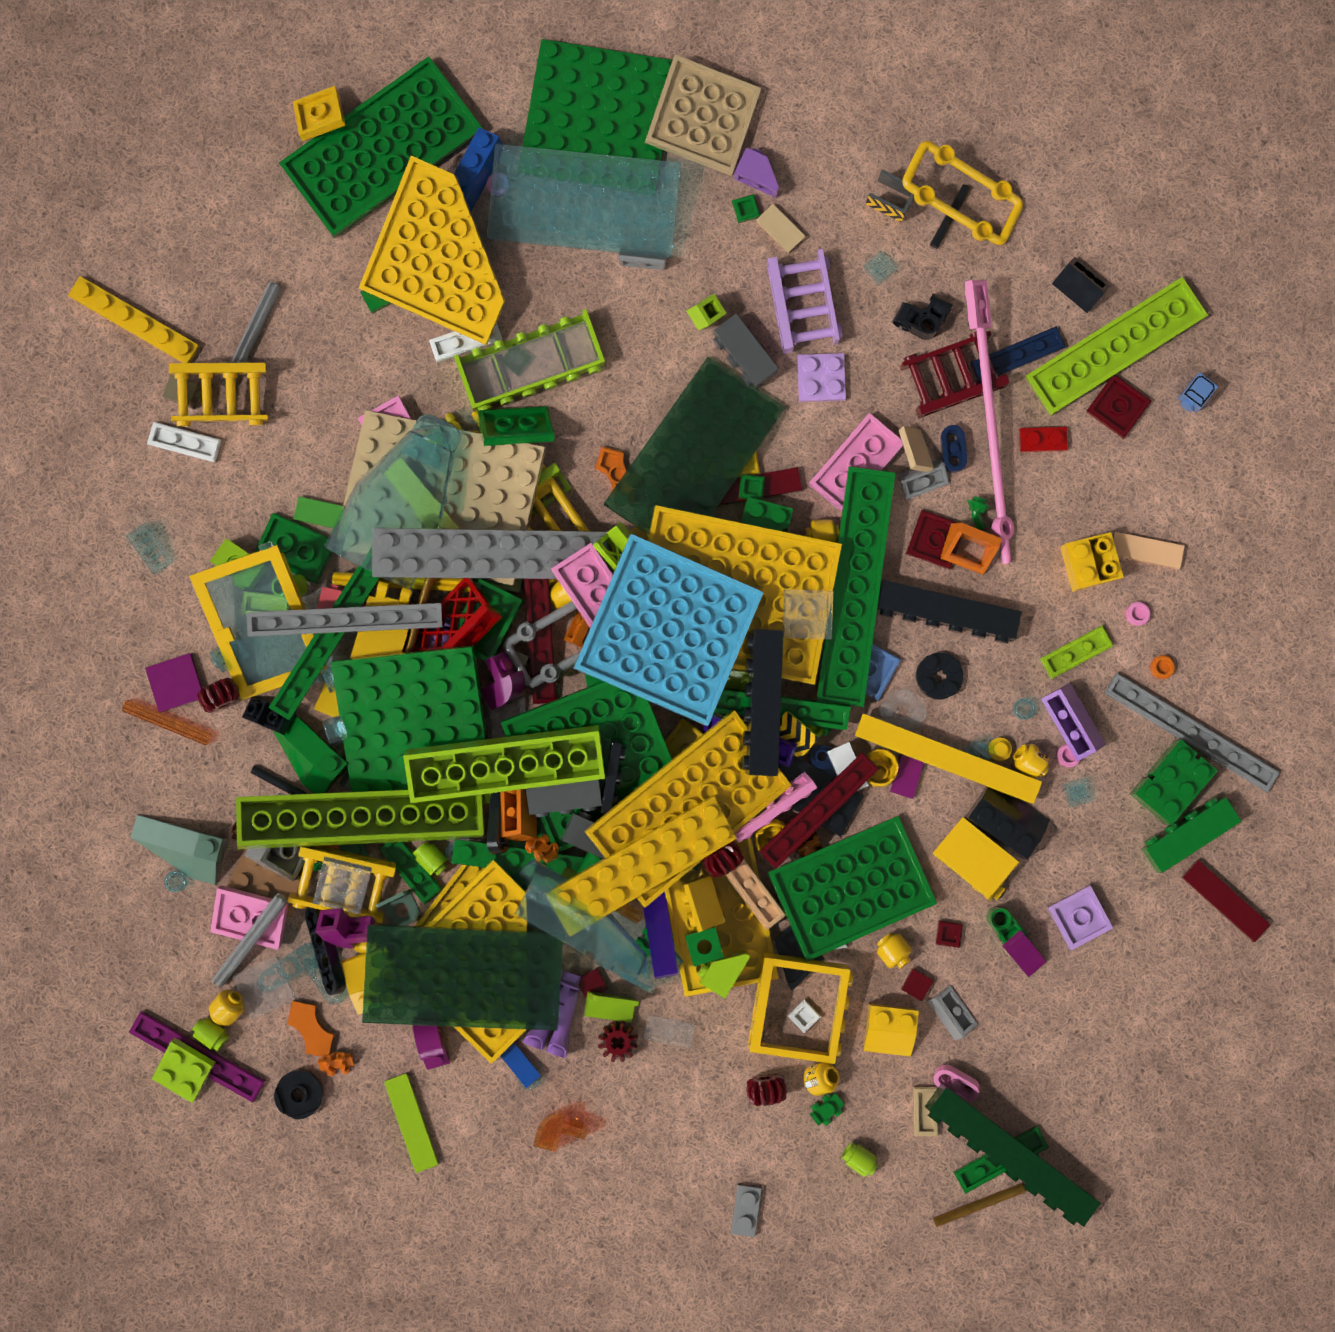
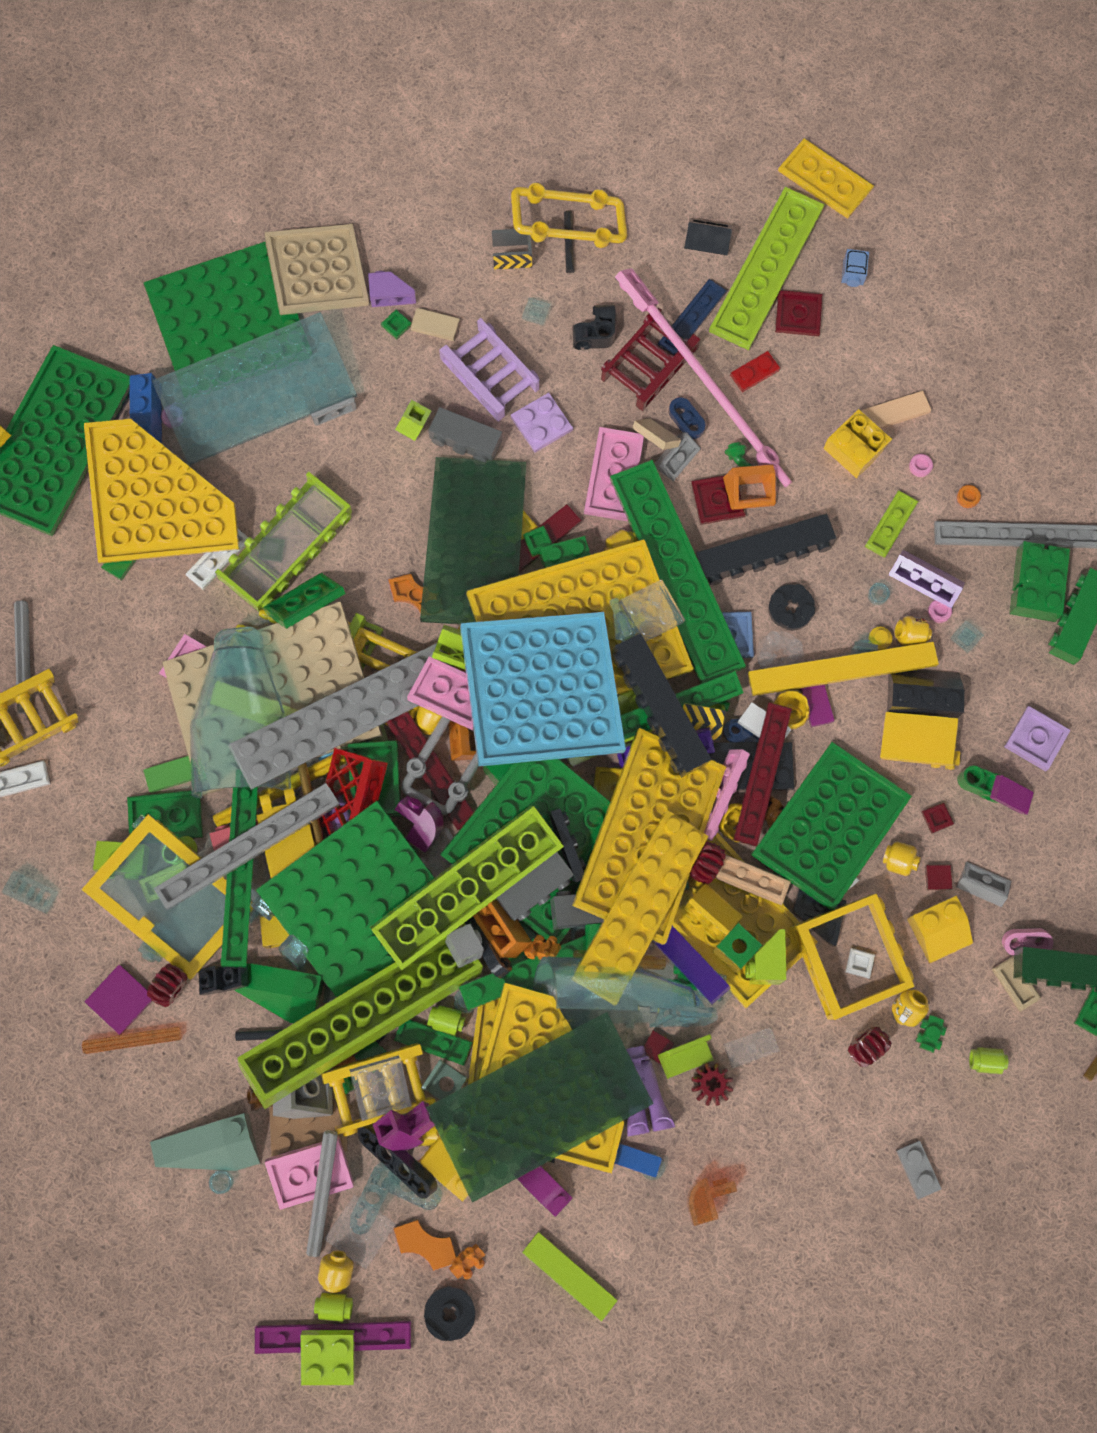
camera: 35 degrees left, 10 degrees down
(477, 810) = (465, 945): none -> light grey brick
(774, 613) = (623, 625): none -> clear light blue cone
(1227, 288) = (825, 178): none -> yellow tile

